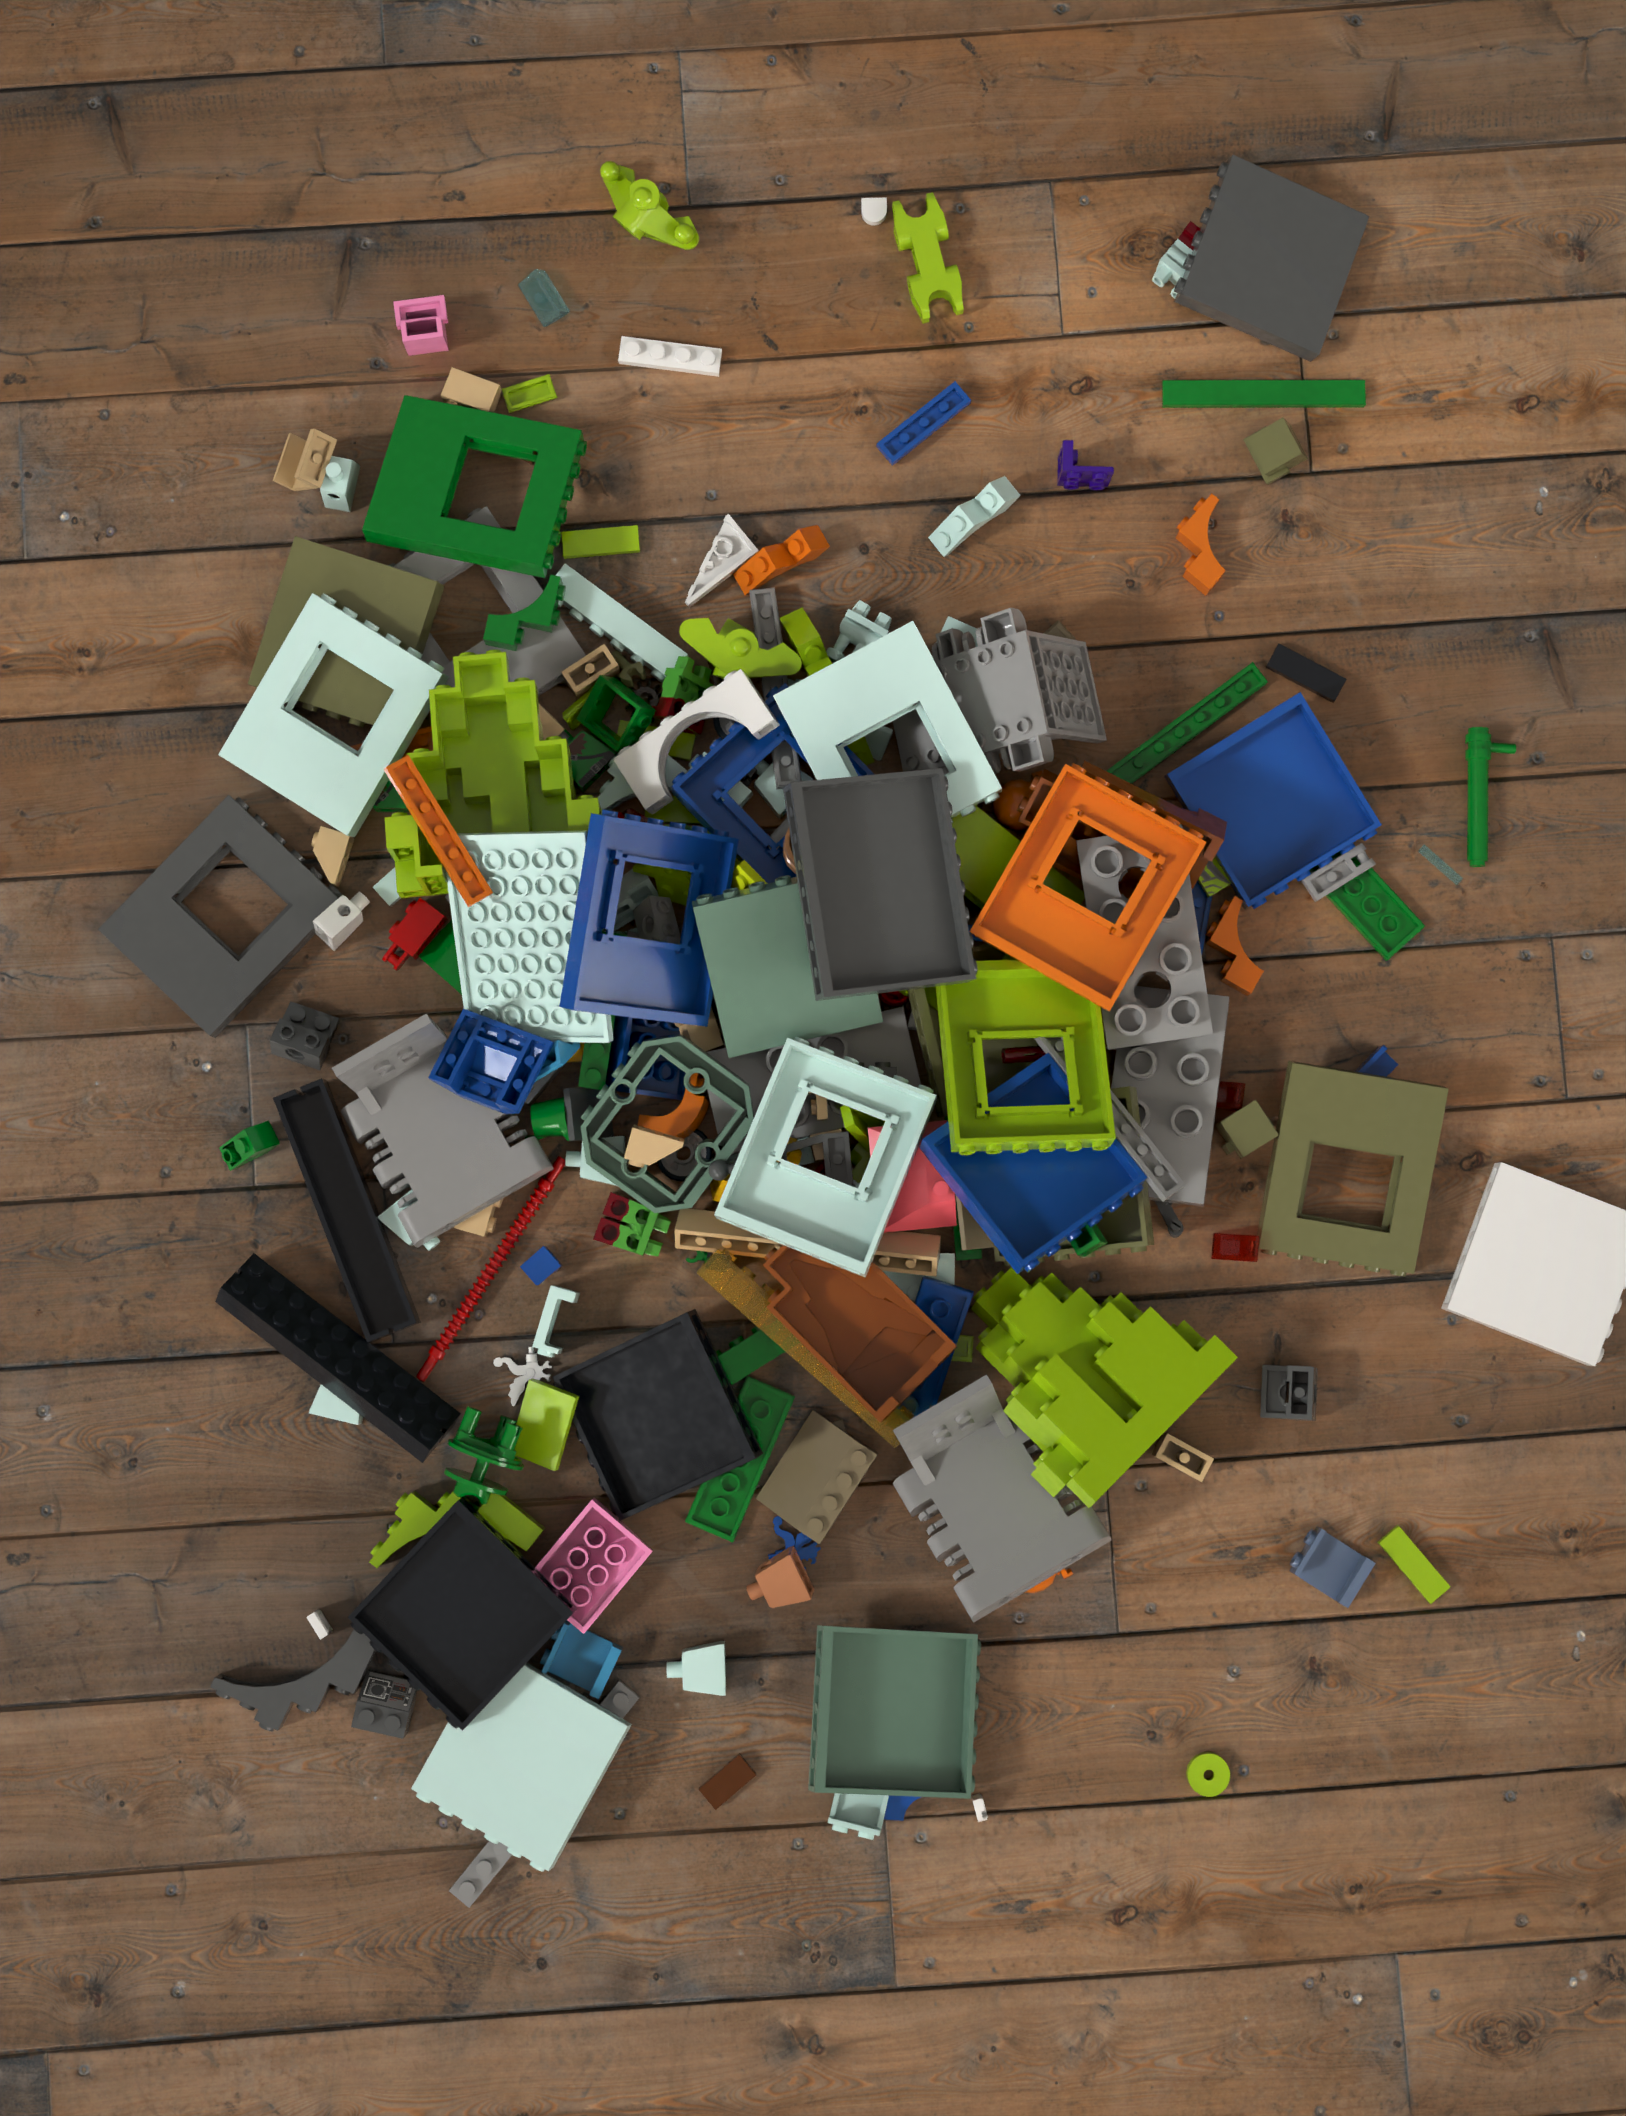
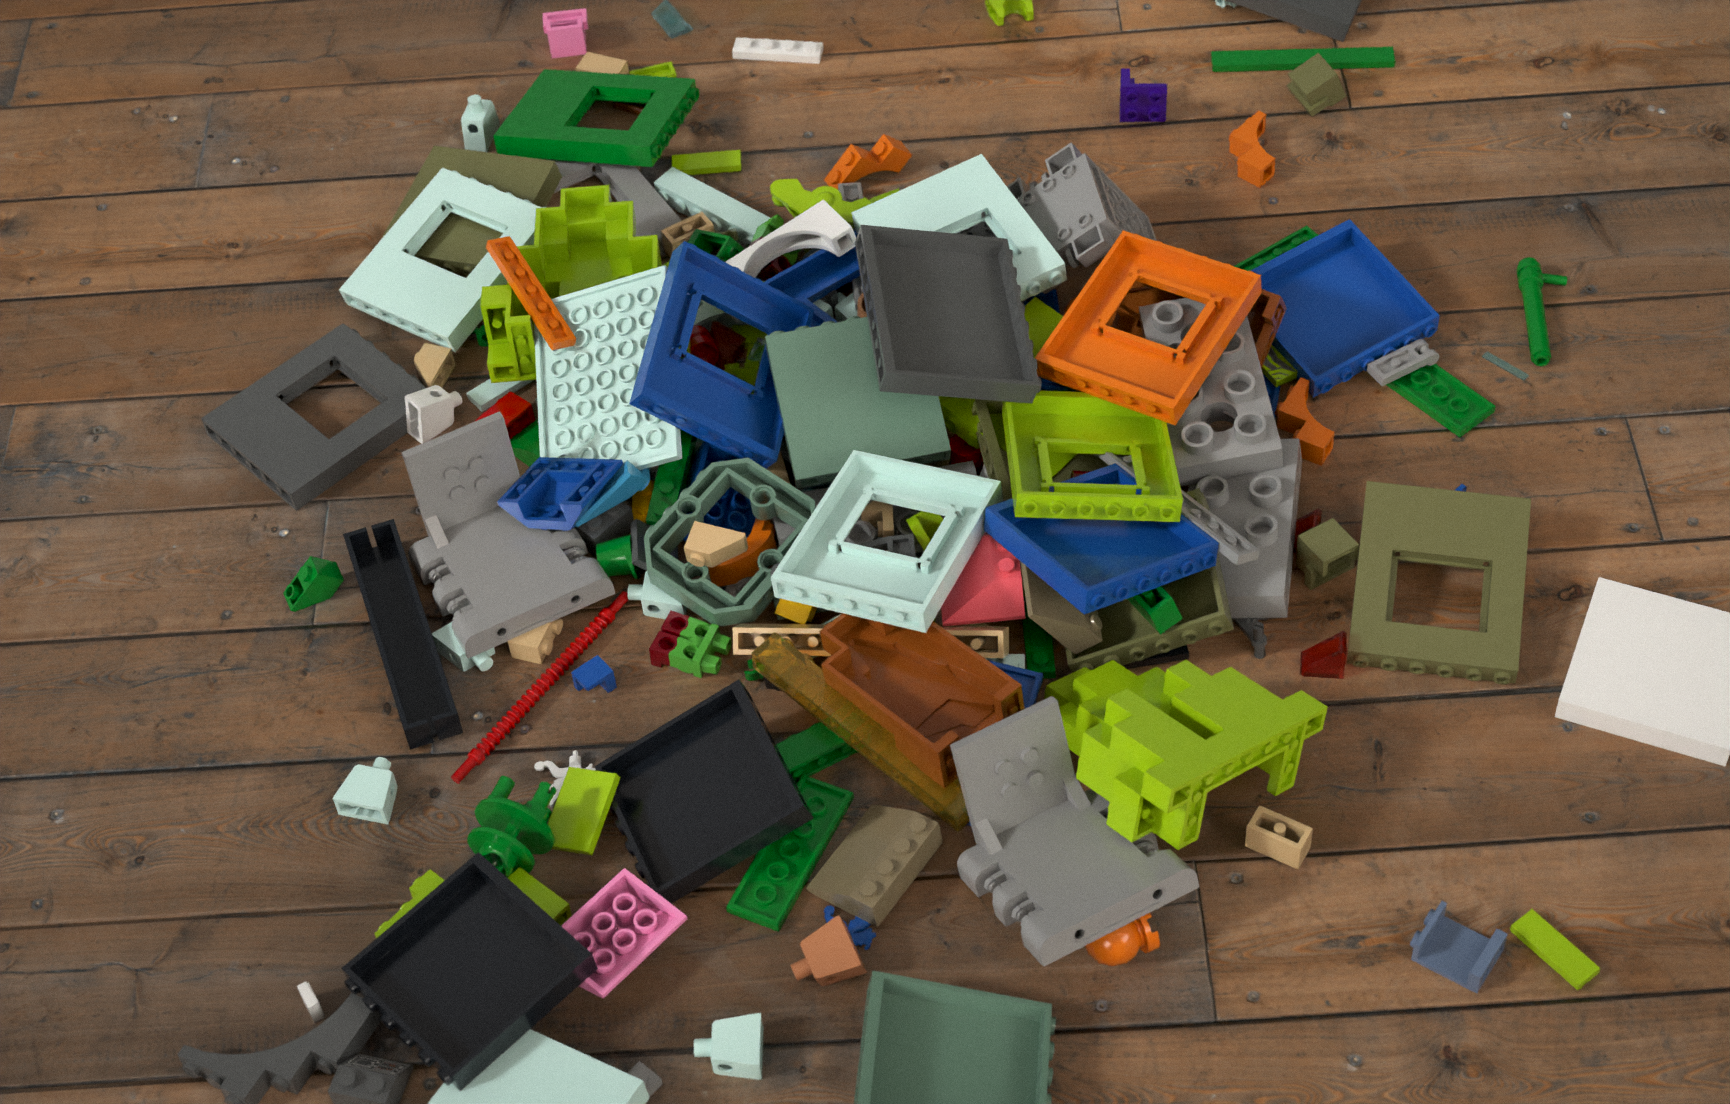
camera: 10 degrees right, 35 degrees down
(304, 462) = (450, 105): tan panel -> none
(304, 1035) = (379, 500): dark grey brick -> none
(337, 1357) = (371, 749): black piece -> none
(542, 614) = (646, 191): green arch -> none
(548, 1318) = (606, 698): light aqua panel -> none
(581, 1658) = (600, 1034): dark azure panel -> none
(728, 553) = (817, 165): white wing -> none
(923, 423) = (998, 82): blue plate -> none
(973, 514) = (1034, 133): light aqua arch -> none
(1302, 1392) = (1405, 788): dark grey brick -> none
(1306, 673) = (1380, 238): black tile -> none

